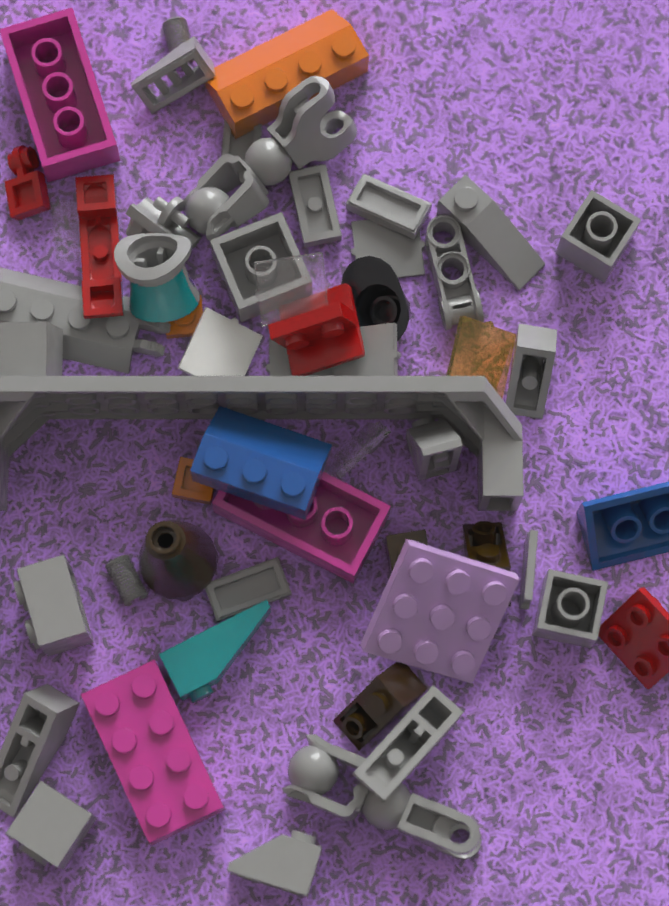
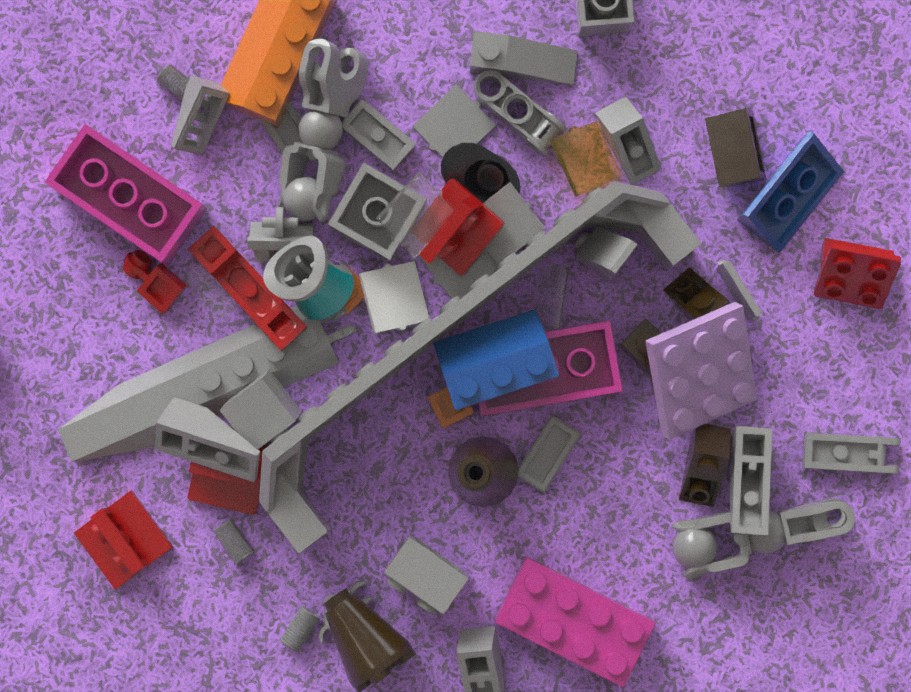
camera: 35 degrees left, 10 degrees up
(139, 589) = (455, 519): light grey piece -> none
(208, 655) = (559, 524): teal slope -> none
(281, 863) = (725, 630): light grey slope -> none
(388, 206) = (431, 94): light grey tile -> none
(519, 794) = (847, 452): none -> light grey hinge
(570, 608) = (788, 295): light grey head -> none
(622, 447) = (735, 148): none -> dark brown brick

